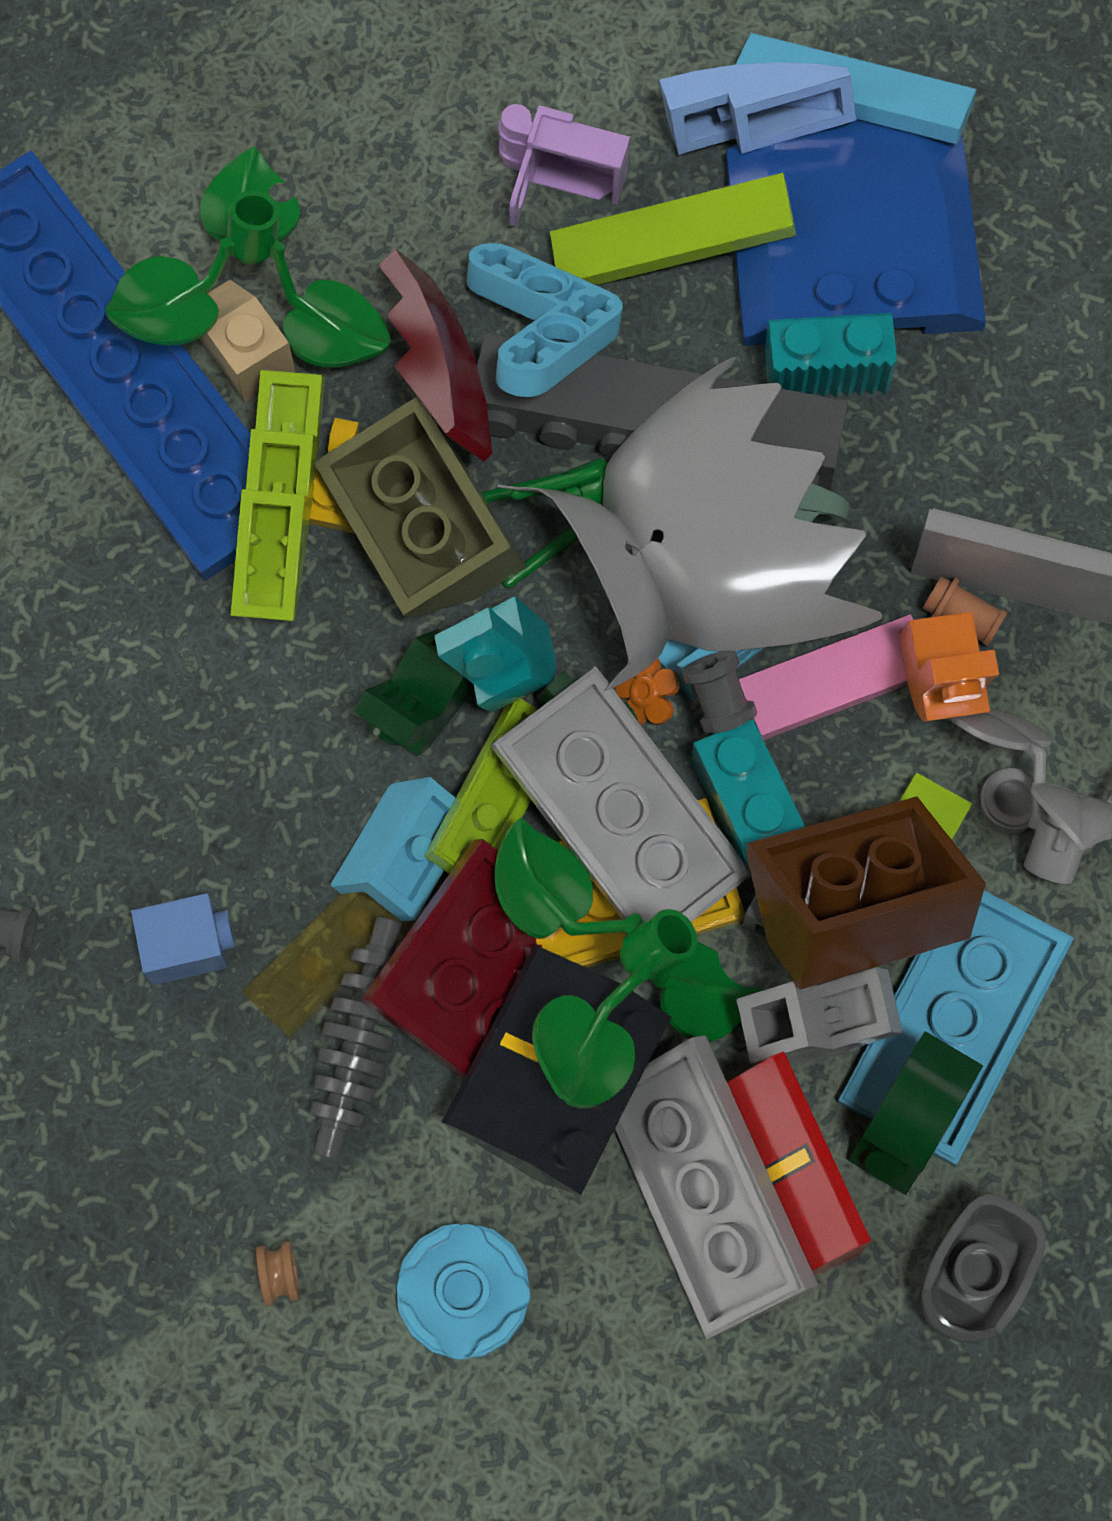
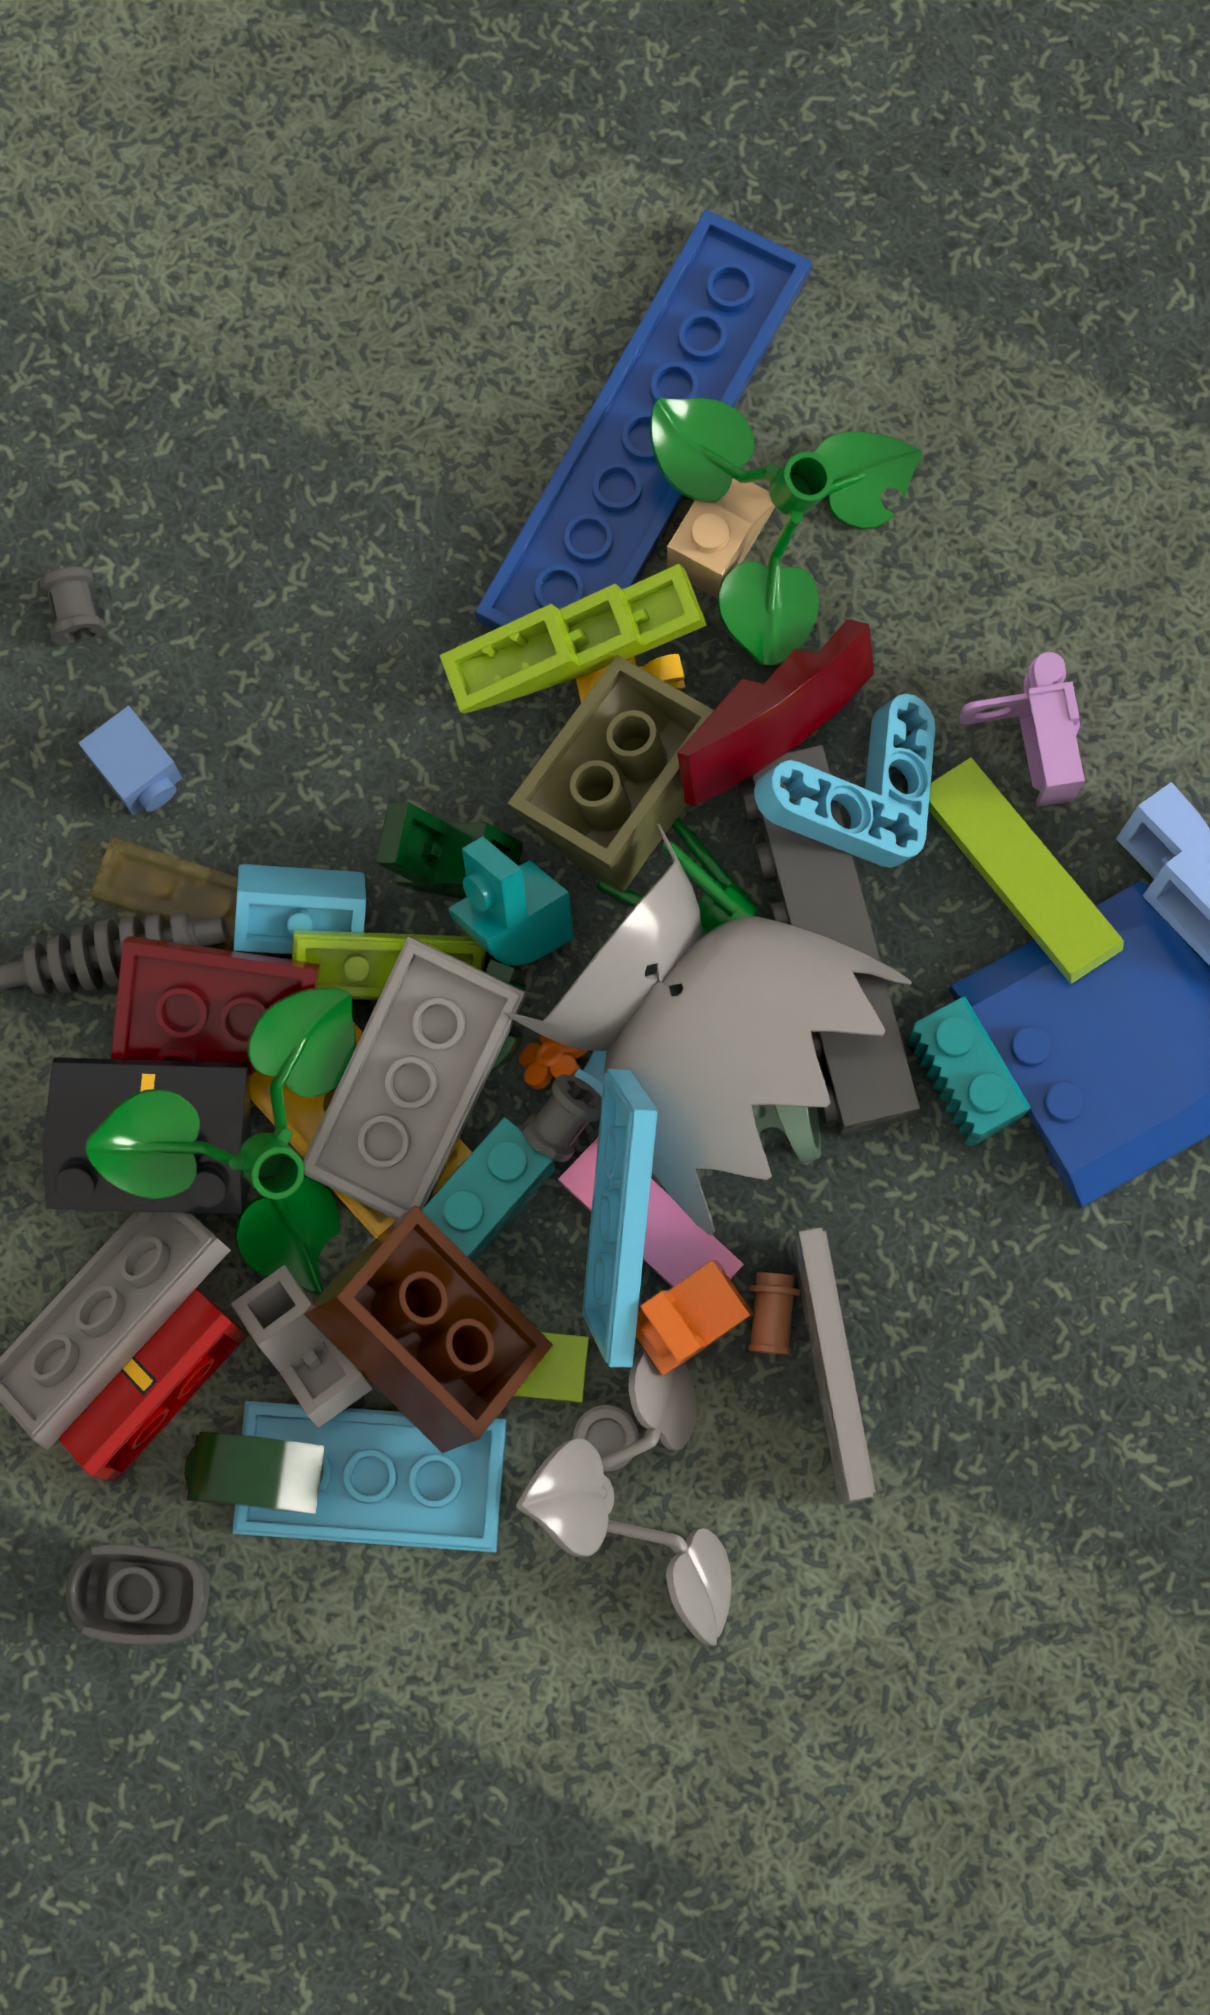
camera: 65 degrees right, 5 degrees up
(838, 672) = (619, 1216): none -> medium azure tile

